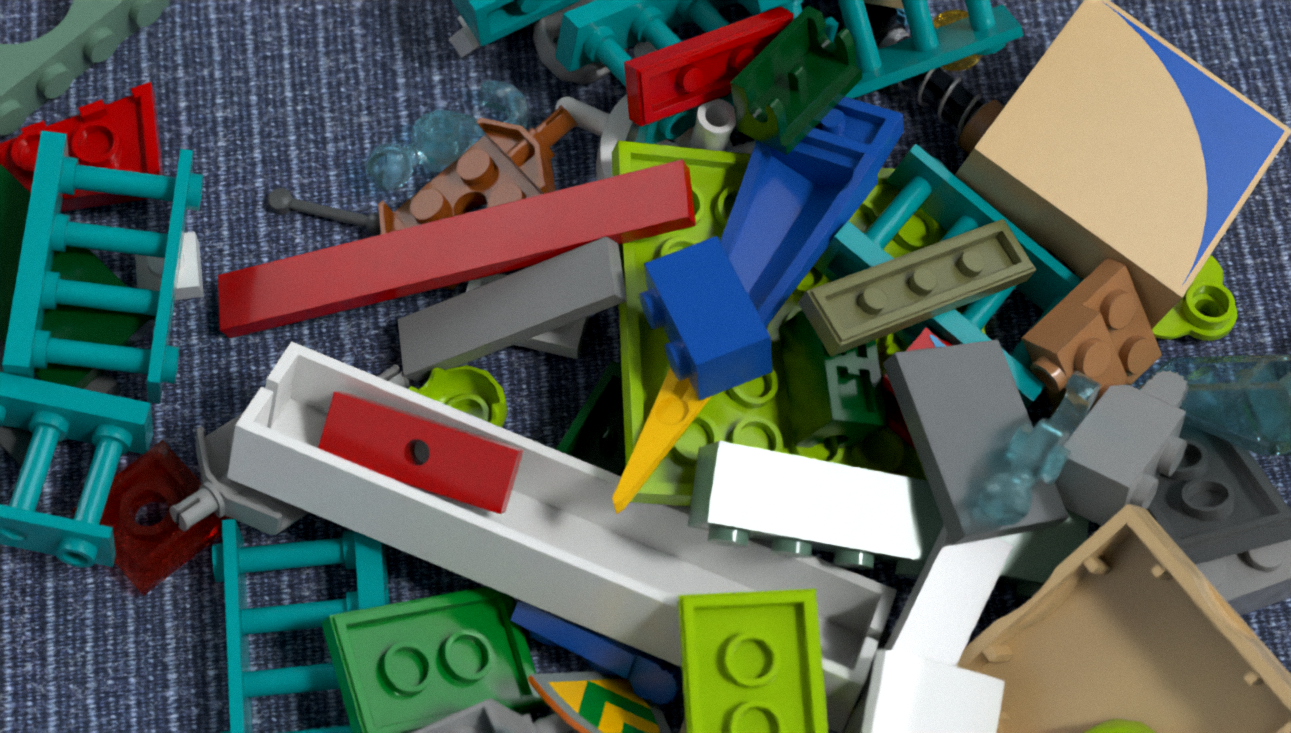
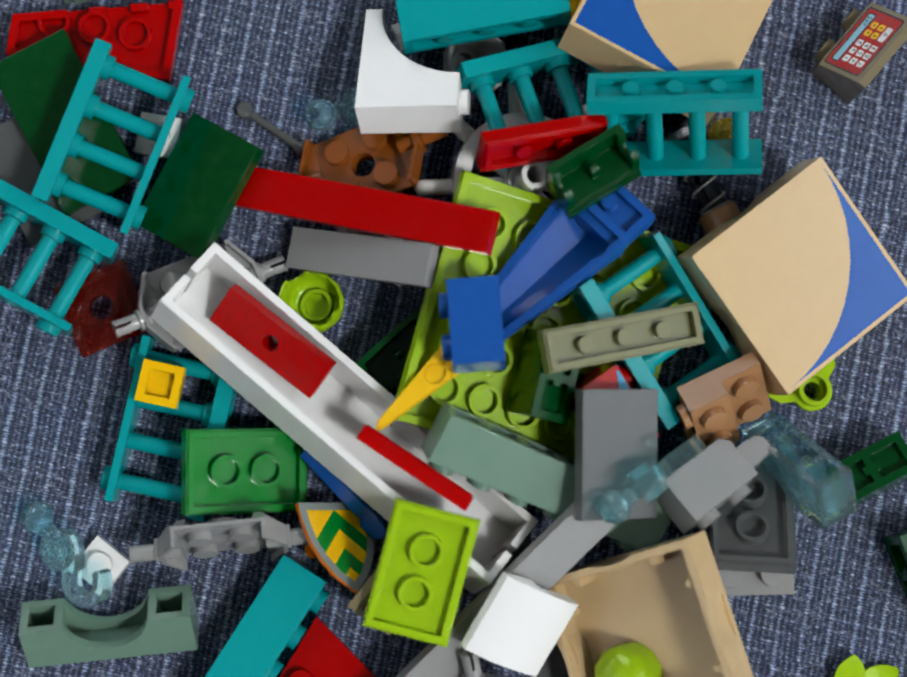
camera: 15 degrees right, 20 degrees up
(245, 299) = (199, 186): none -> dark green tile
(270, 577) = (160, 384): none -> yellow plate
(501, 84) = (401, 94): none -> white arch
(688, 552) = (415, 467): none -> red tile

